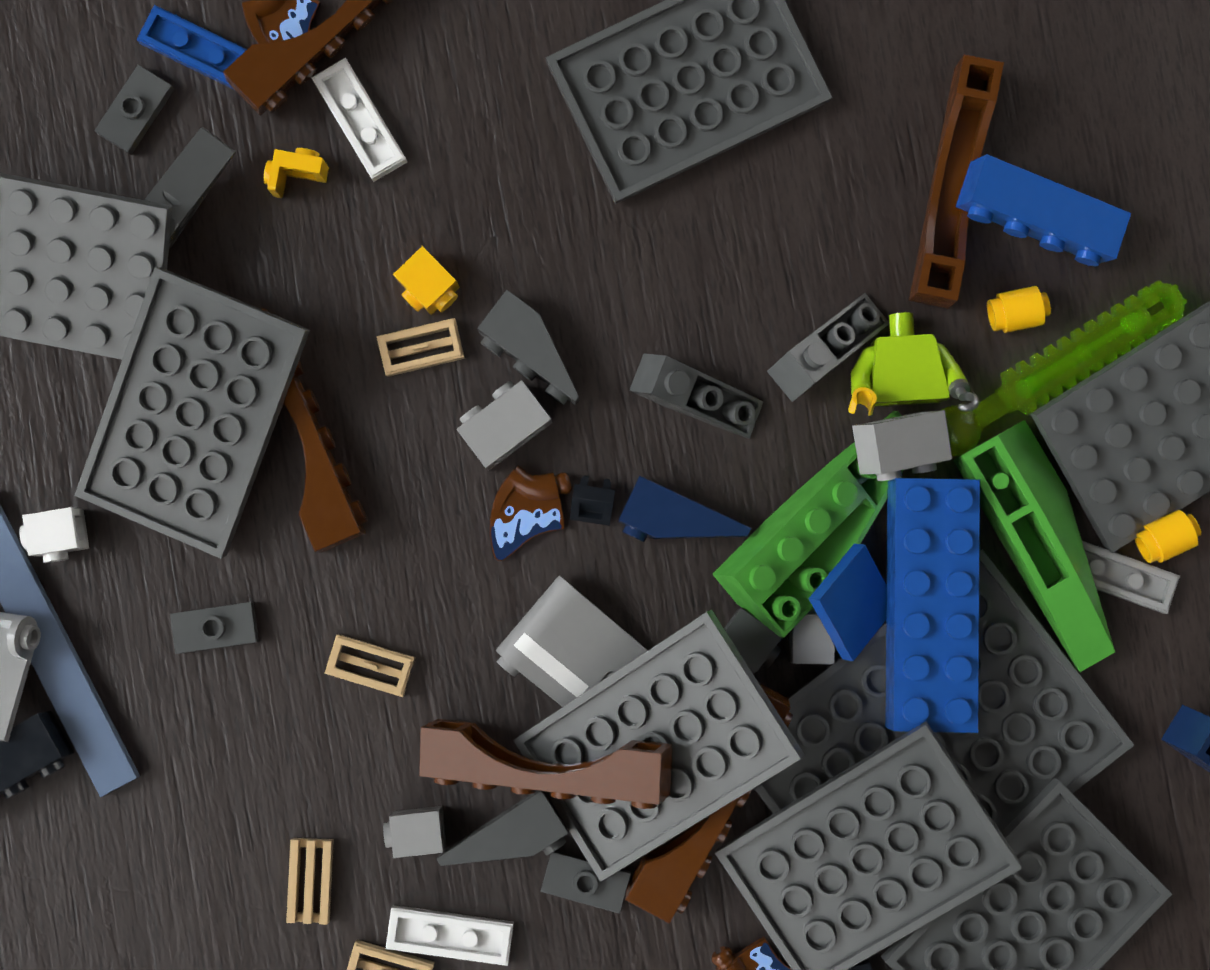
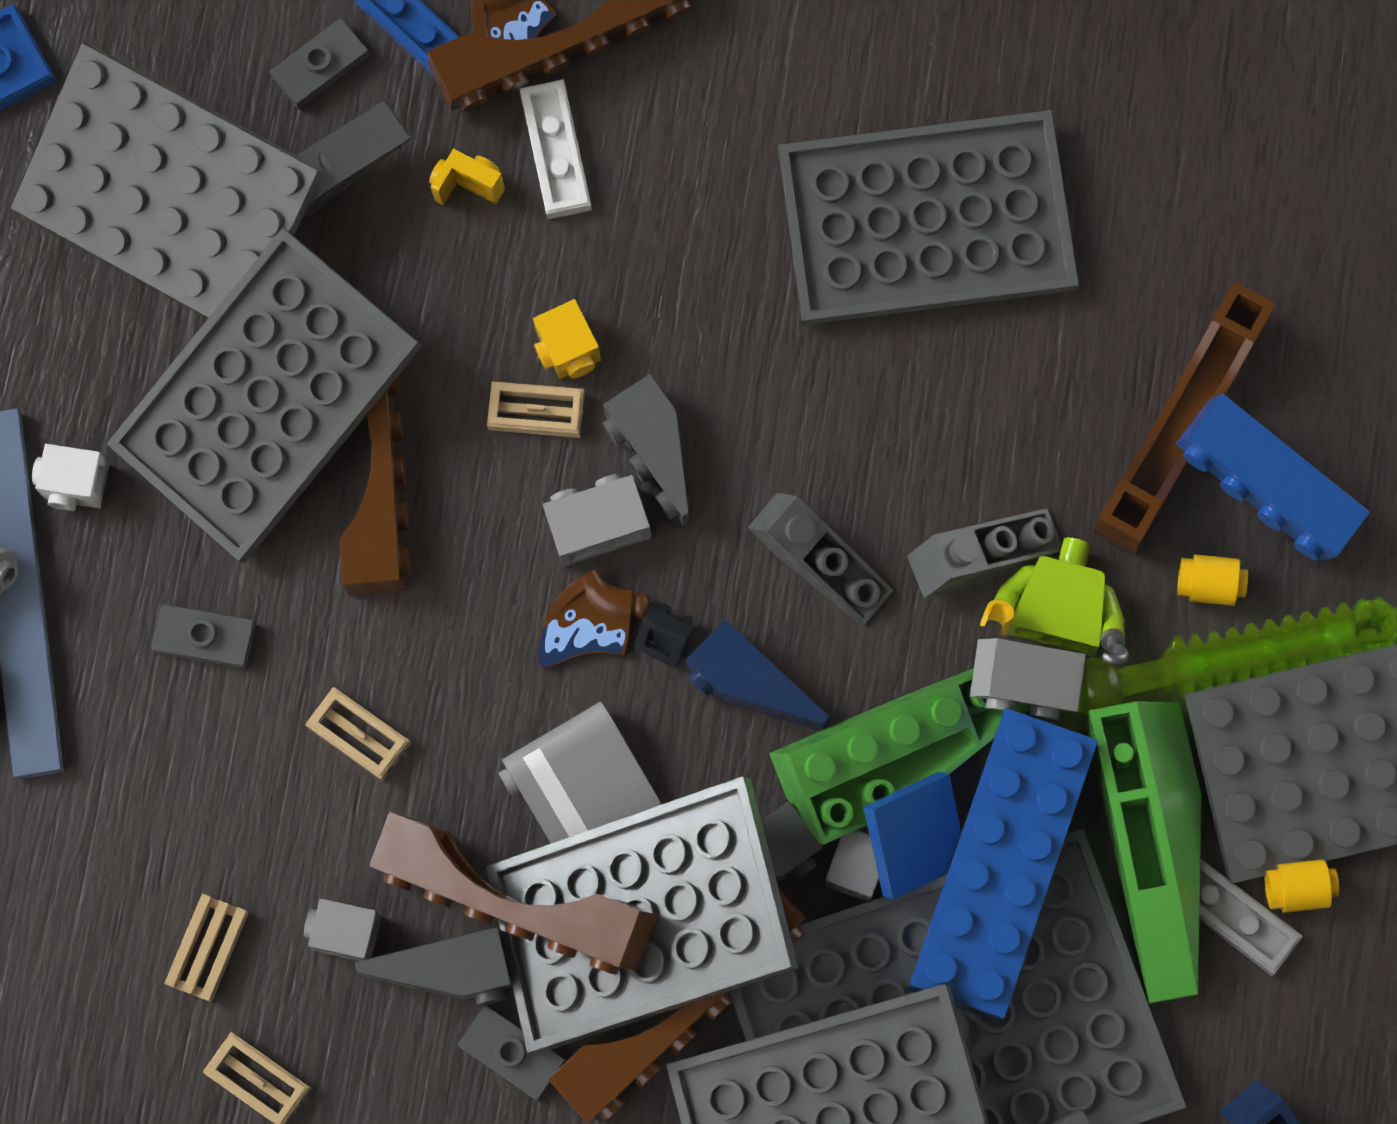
camera: 25 degrees right, 10 degrees down
(449, 935) = (339, 1062): white tile -> none

